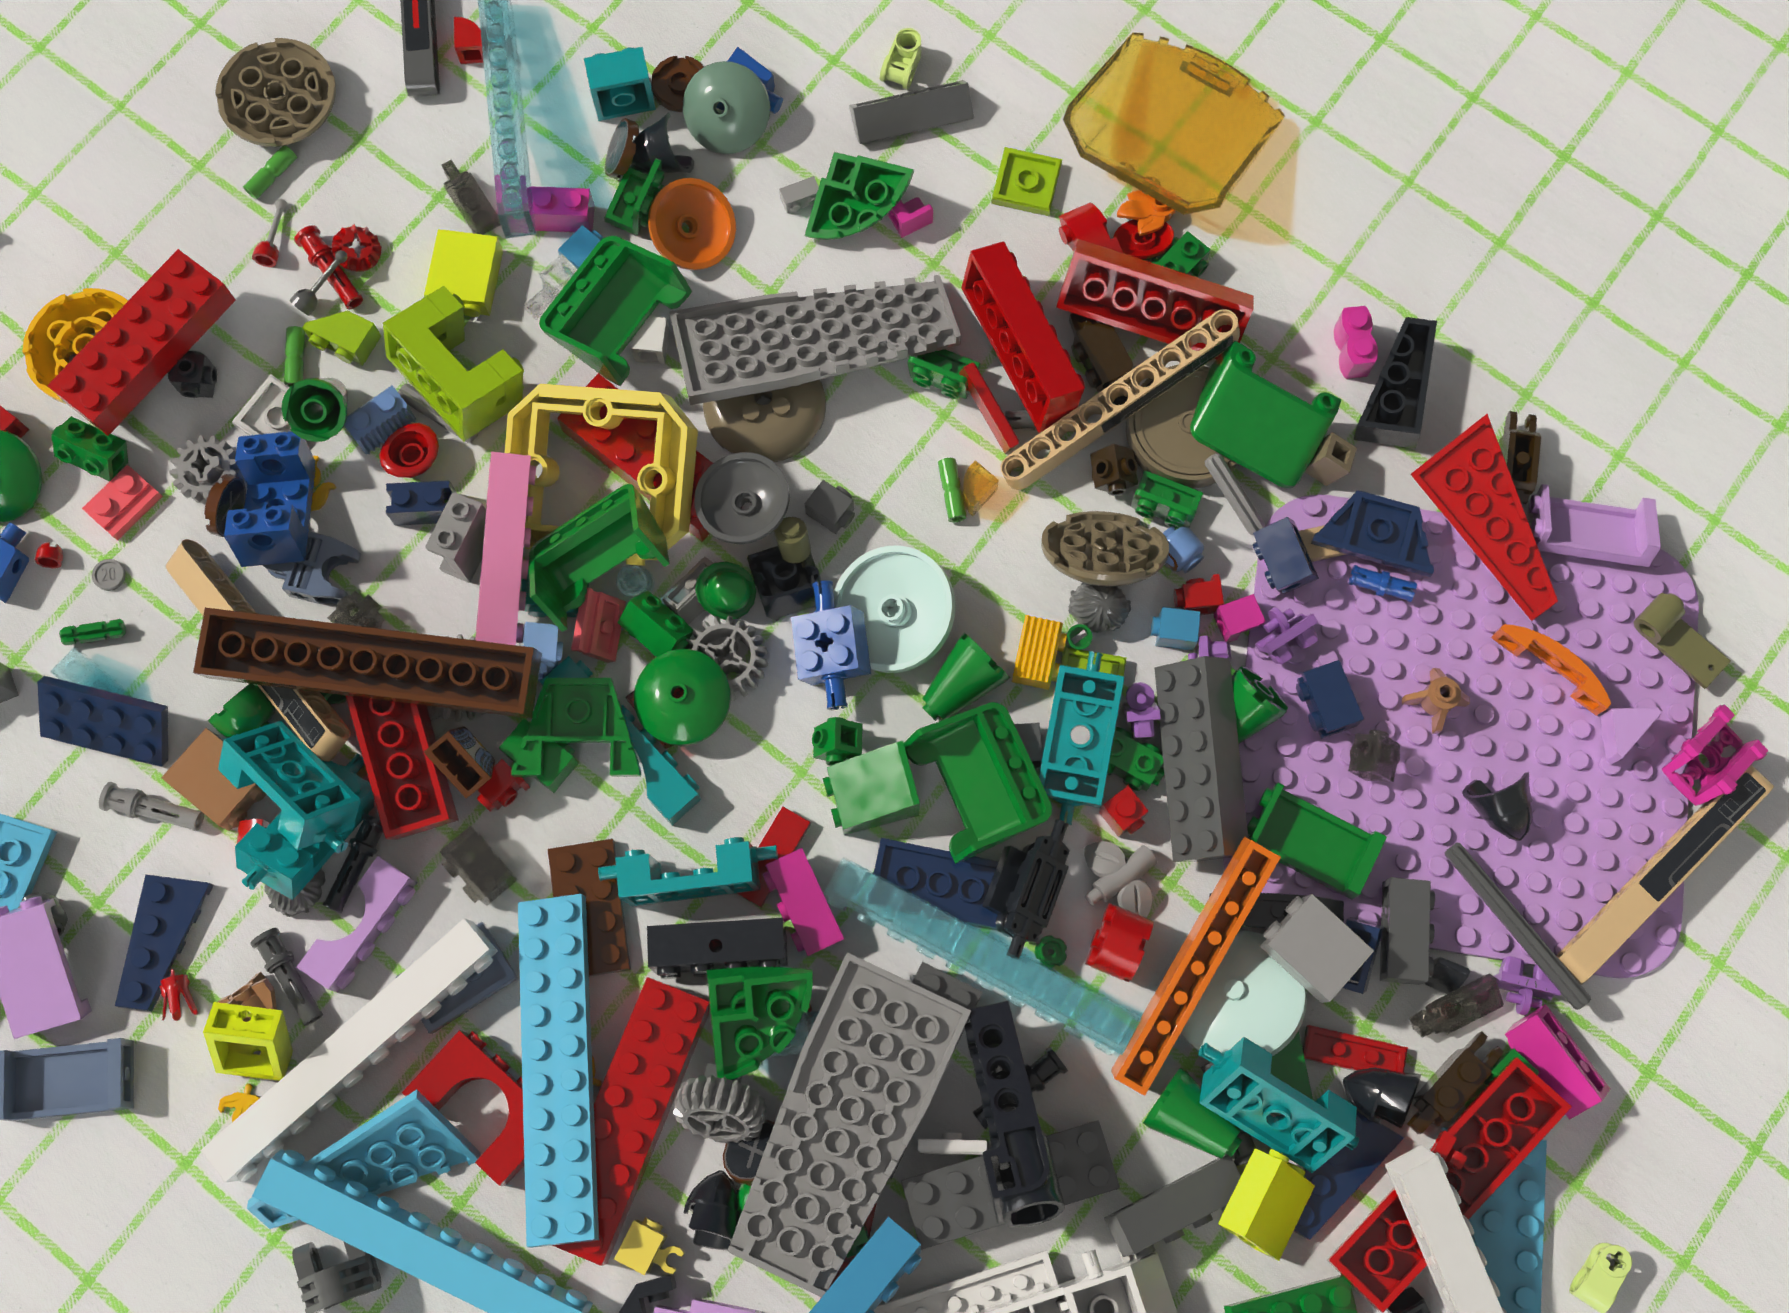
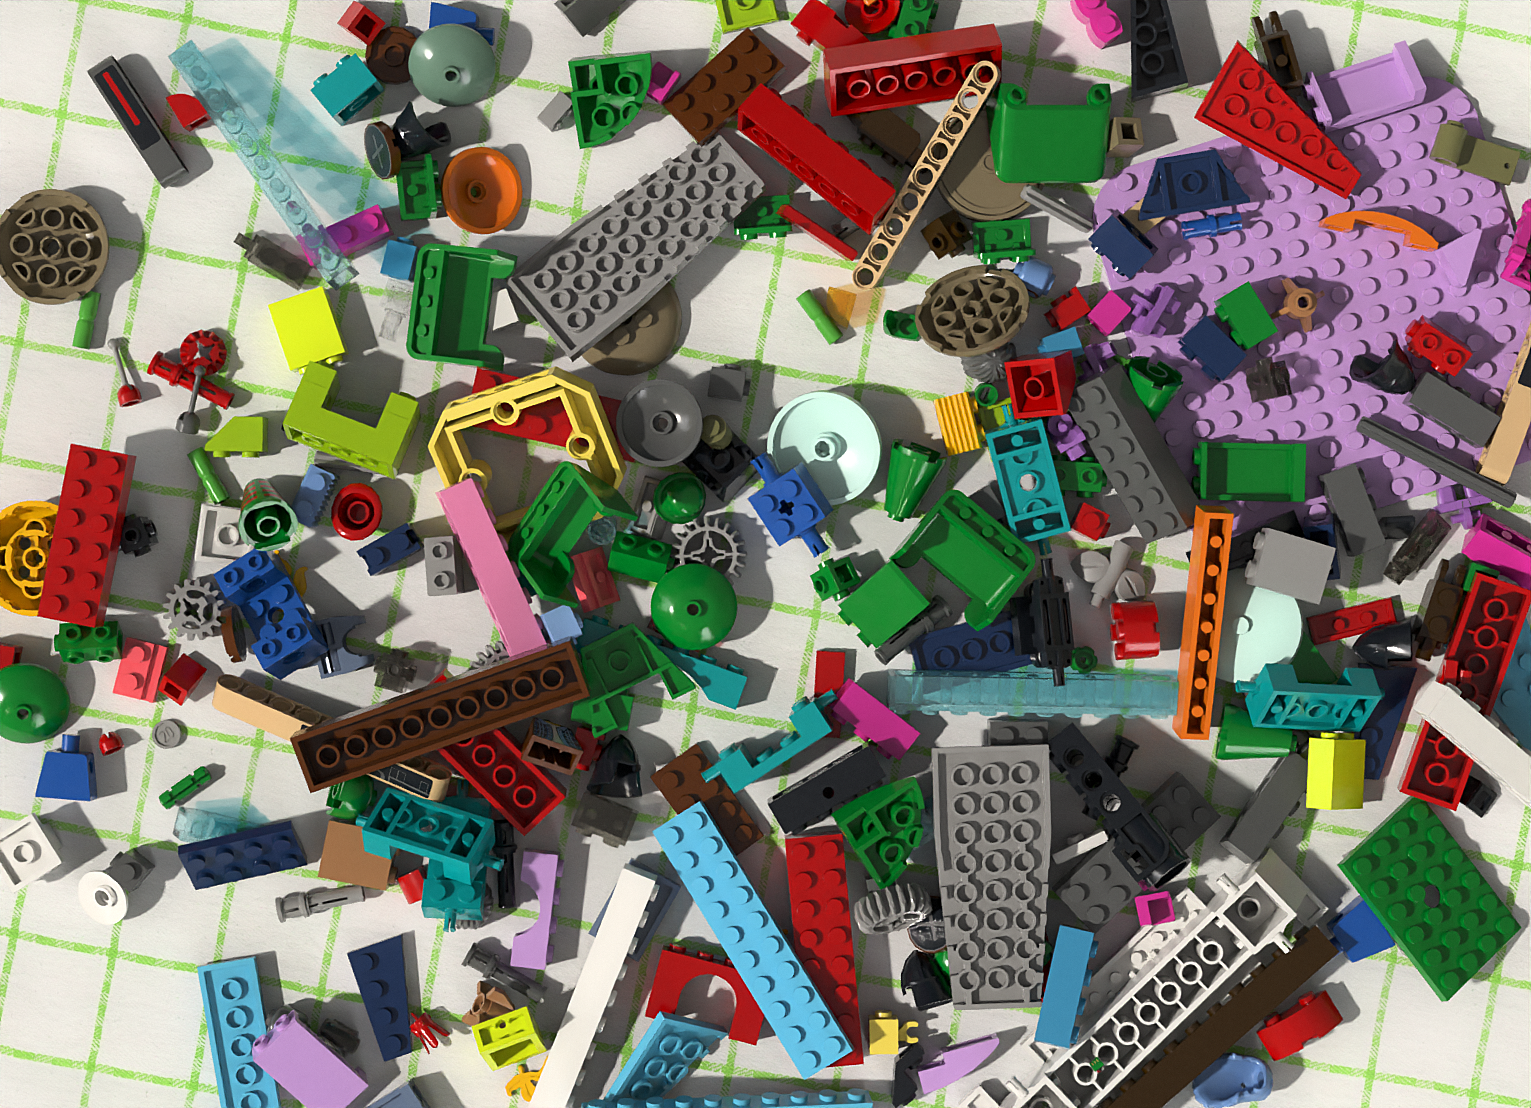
camera: 20 degrees left, 15 degrees up
(84, 956) = (339, 1037): none -> clear smoke brick
(153, 528) = (182, 679): none -> red brick
(516, 825) = (617, 771): none -> black helmet
(666, 41) = (361, 23): none -> red brick
(904, 829) = (921, 623): none -> dark grey pin
(945, 247) = (722, 86): none -> reddish brown plate
(1000, 1256) = (1155, 909): none -> dark pink panel
(1025, 533) = (900, 325): none -> green hair
(1140, 643) = (1041, 383): none -> red slope
(1378, 682) = (1245, 316): none -> green brick
(1556, 880) = (1452, 409): none -> dark grey brick
(1568, 806) = (1437, 345): none -> red brick

